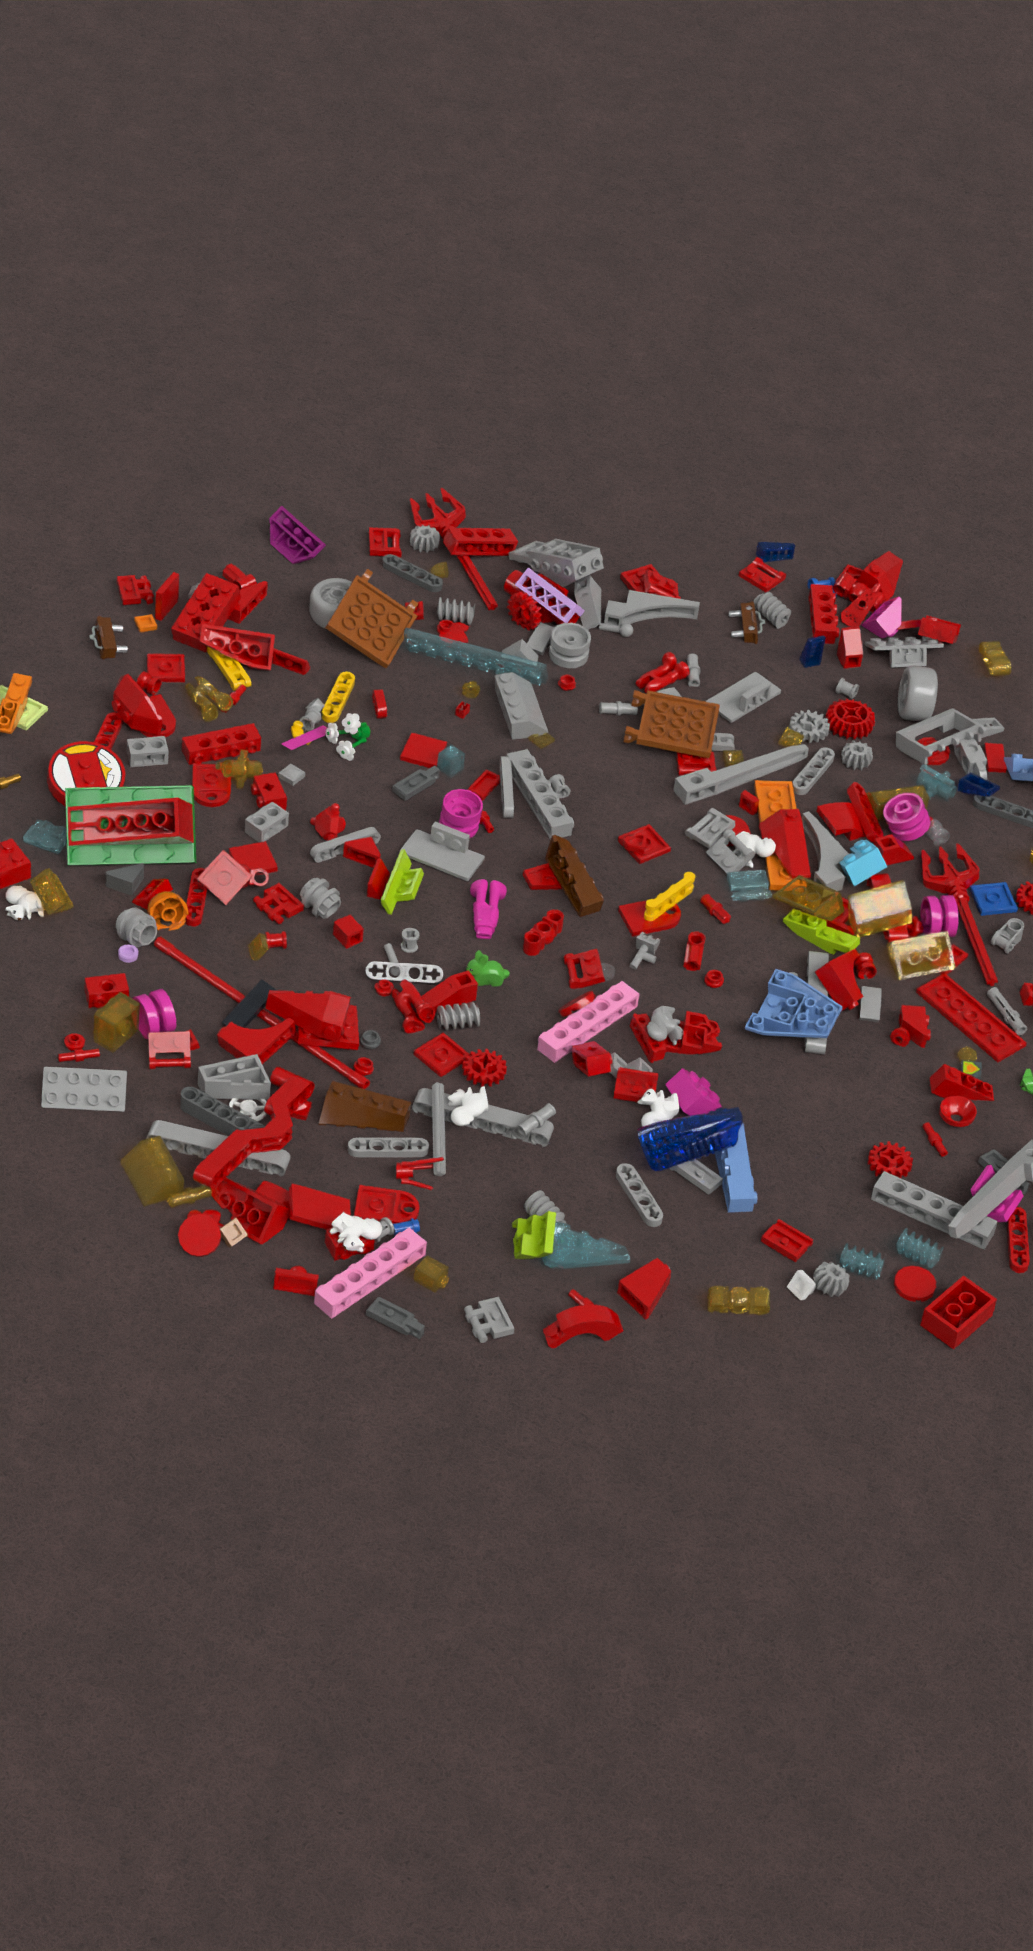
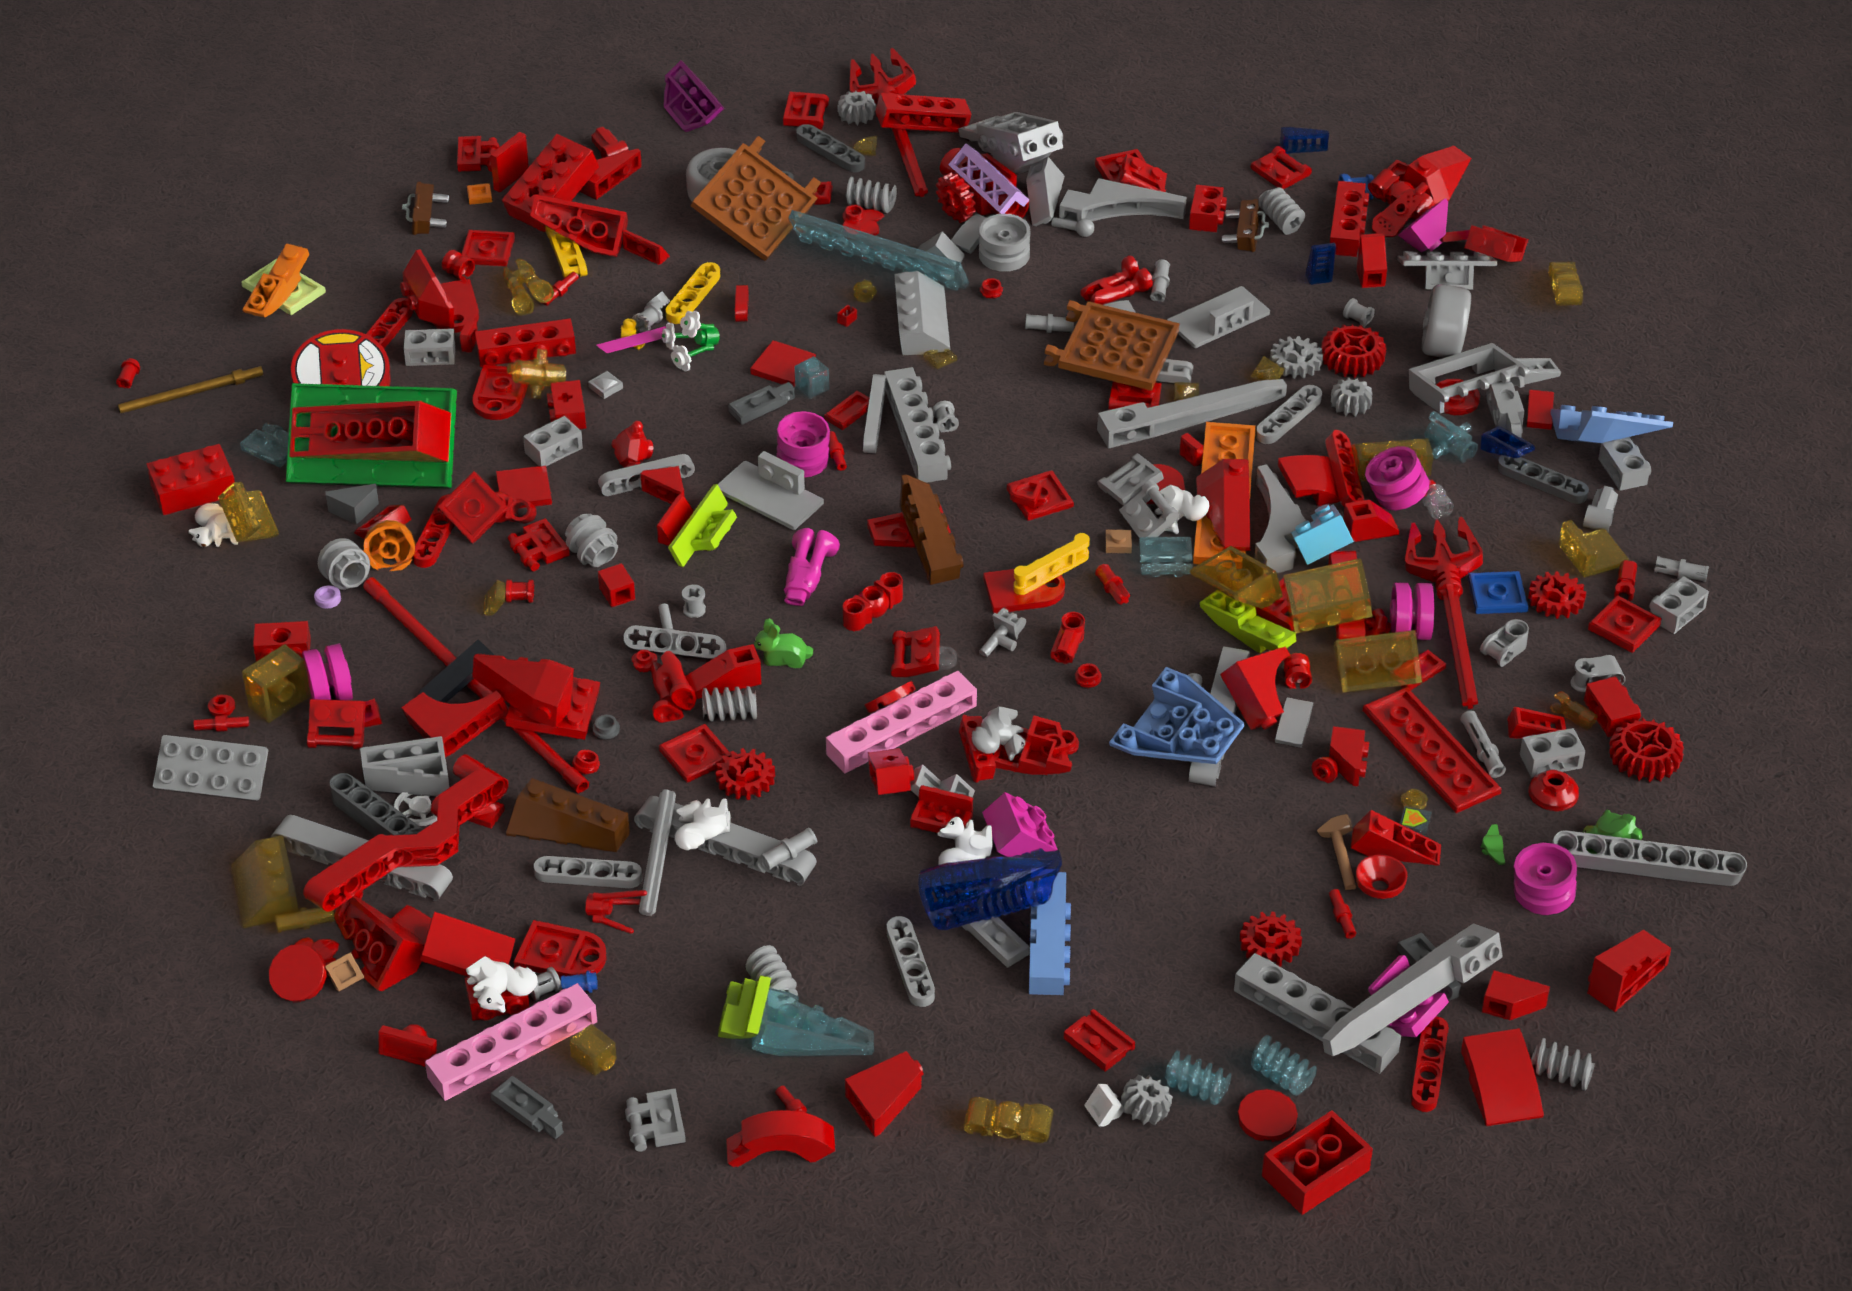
camera: 15 degrees right, 0 degrees up
(174, 740) = (467, 336): none -> red tile
(711, 876) = (1118, 541): none -> medium nougat plate
(715, 610) = (1207, 208): none -> red brick
(918, 1079) = (1336, 828): none -> medium nougat piece

